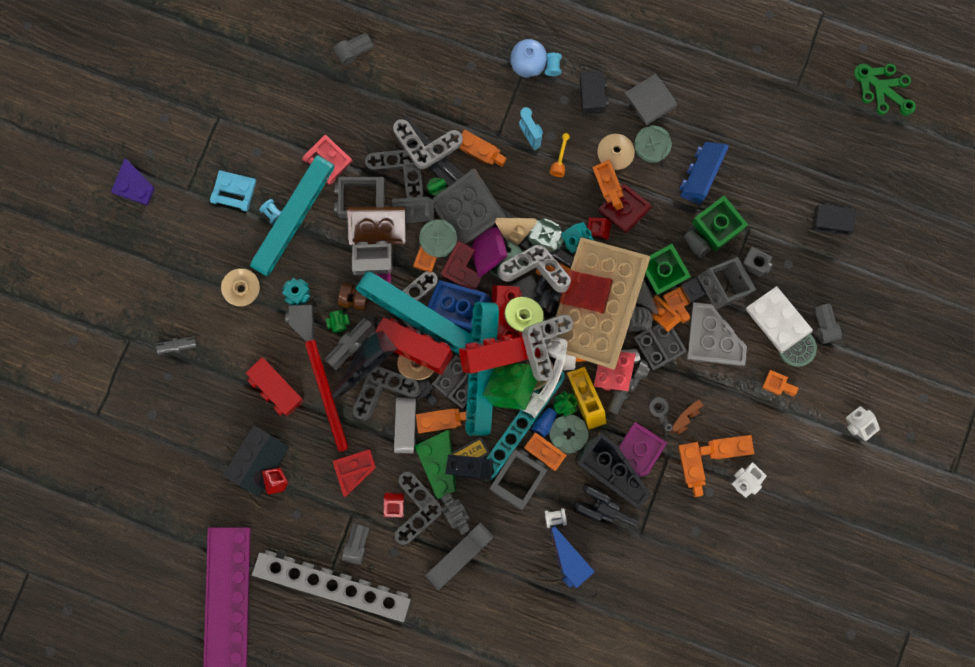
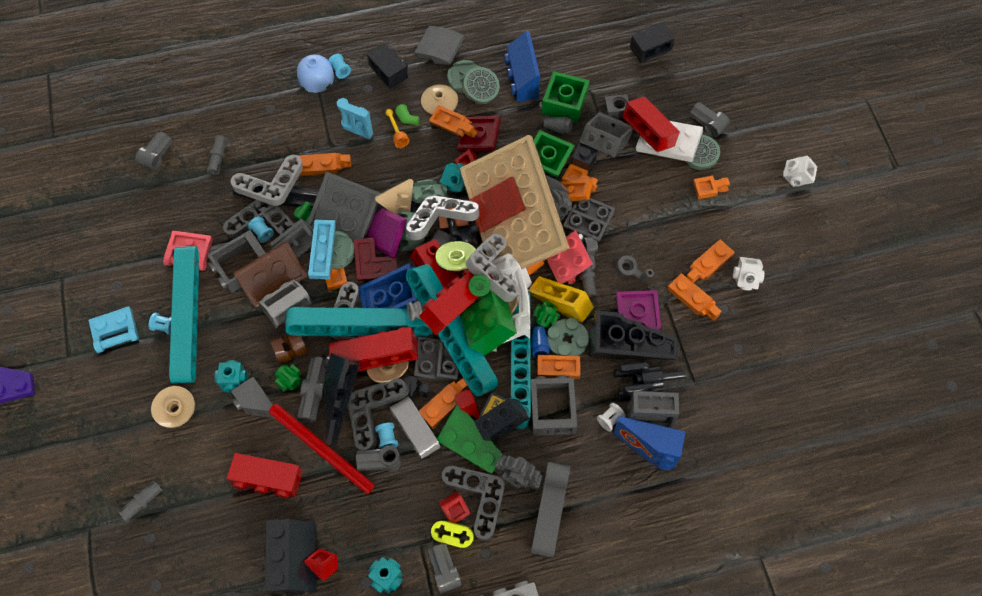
camera: 30 degrees left, 15 degrees down
(315, 528) = (387, 583): none -> teal brick
(353, 469) = (393, 500): red wing -> none
(361, 430) = (376, 459): none -> dark grey piece
(380, 417) = (386, 435): none -> medium azure bush
(382, 520) = (451, 539): none -> neon yellow beam
(394, 178) = (260, 229): none -> medium azure bush
(400, 85) = (217, 155): none -> dark grey pin
(427, 234) = (322, 249): none -> medium azure plate
(455, 434) = (467, 403): none -> red slope
(463, 335) = (414, 310): none -> light grey bush
(521, 354) = (479, 285): none -> green plate
(575, 149) = (405, 117): none -> bright green arm
(592, 541) = (654, 407): none -> dark grey window
(658, 163) = (480, 85): none -> tile
(681, 422) = (656, 259): dark orange slope -> none
(713, 338) = (629, 186): light grey plate -> none
(768, 300) = (651, 124): none -> red brick

